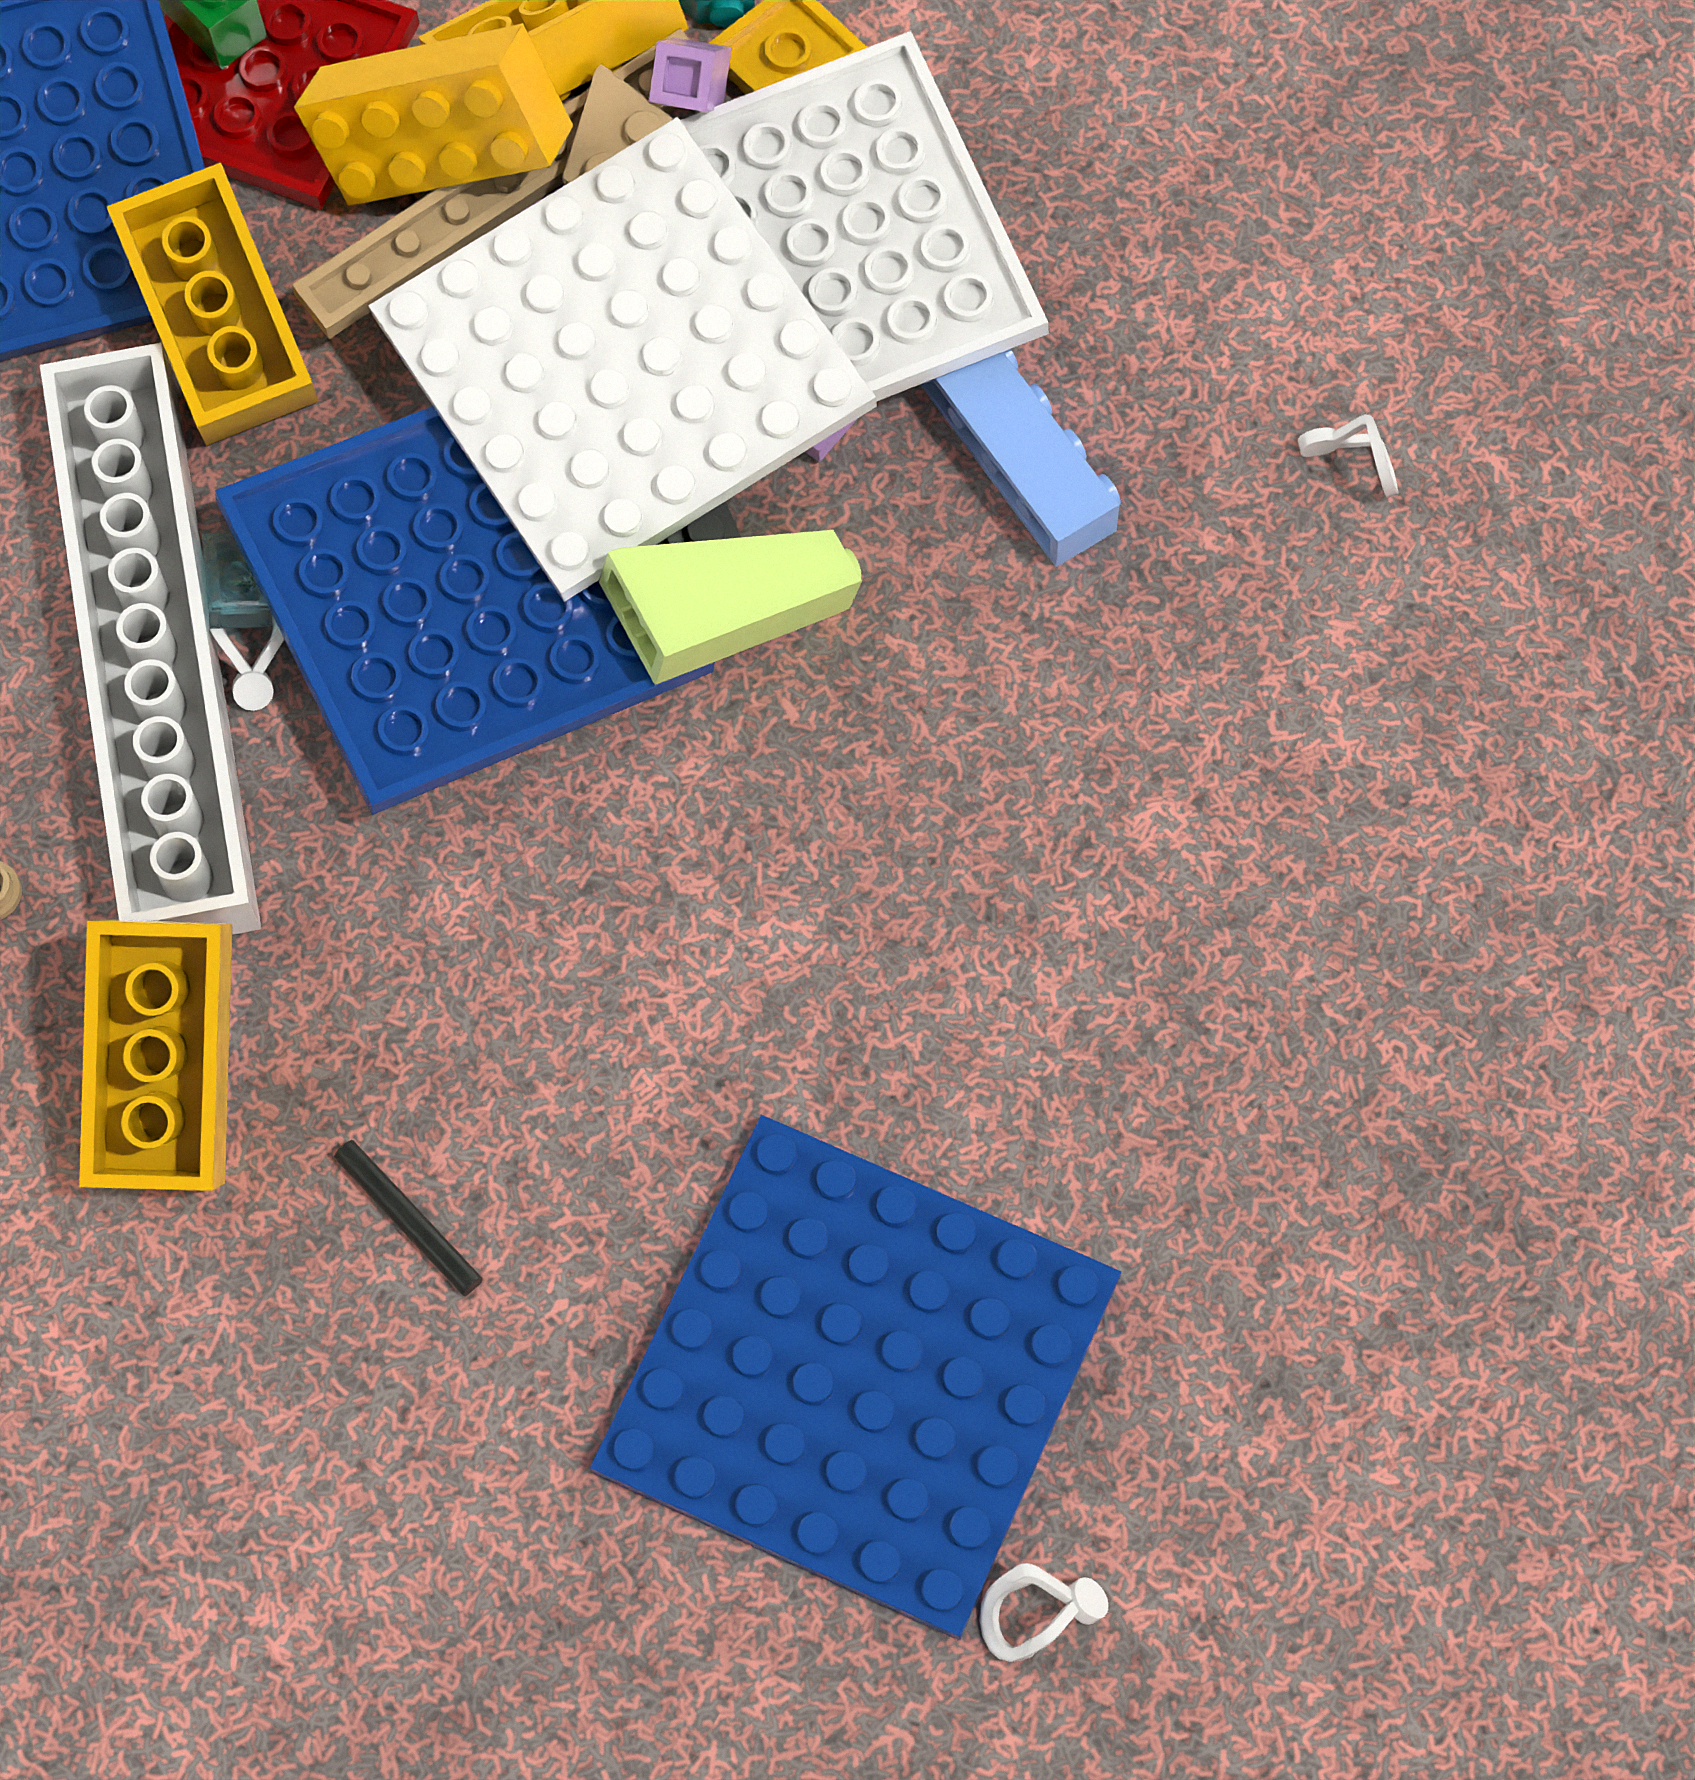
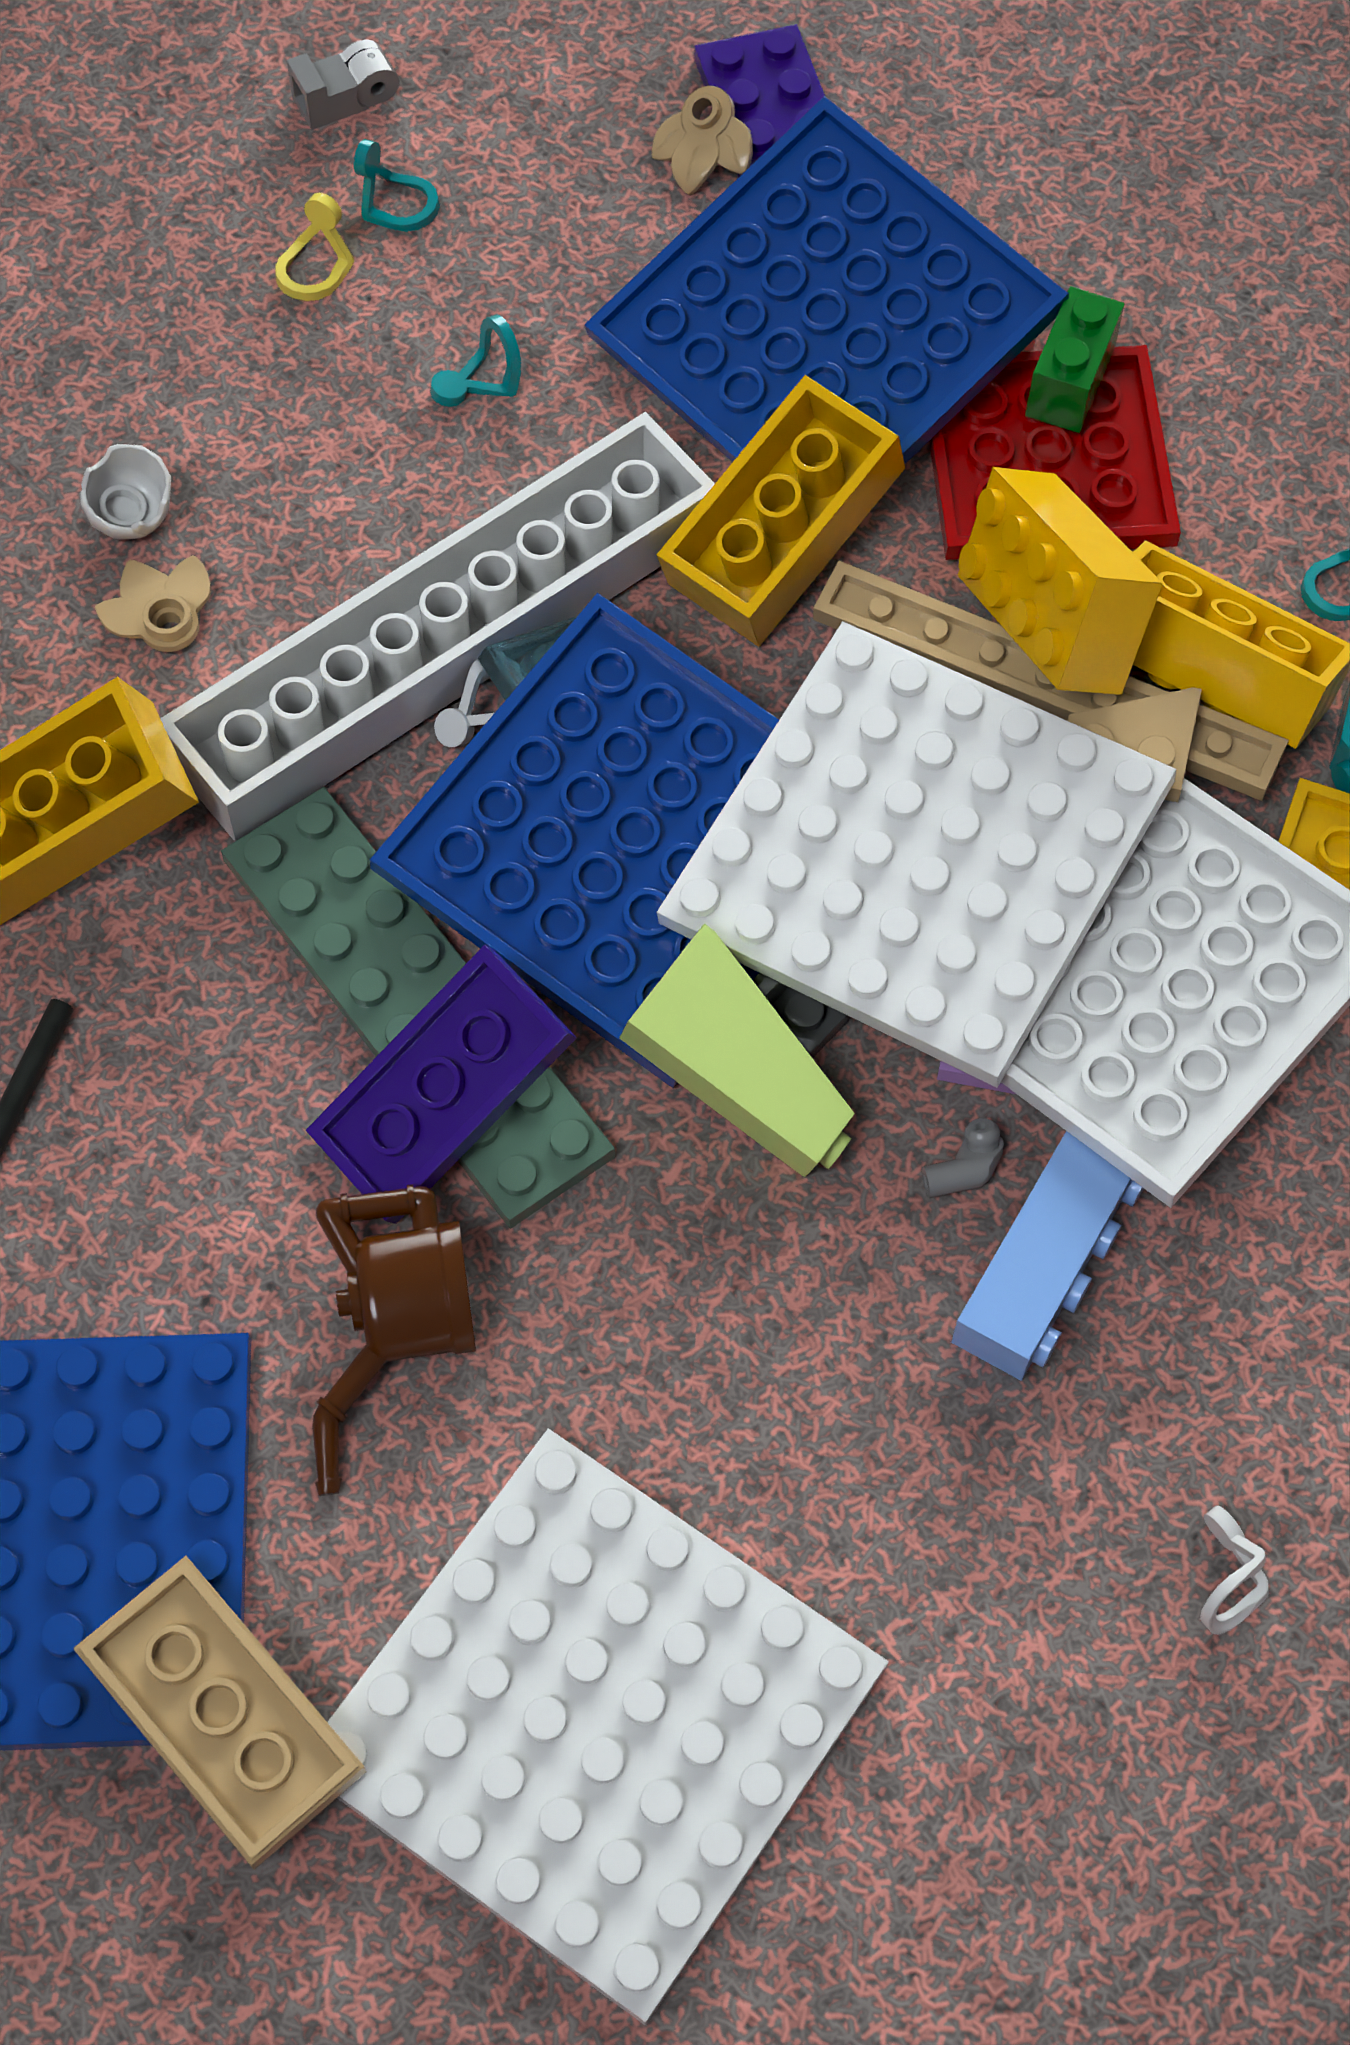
camera: 60 degrees right, 5 degrees down
(509, 845) = (382, 967): none -> sand green plate
(625, 845) = (442, 1080): none -> dark purple plate
(689, 74) = (1240, 766): lavender panel -> none
(798, 968) = (401, 1291): none -> reddish brown piece
(911, 471) = (972, 1164): none -> light grey arm
(1098, 1270) = (220, 1711): none -> tan tile
(1238, 988) = (598, 1722): none -> white plate

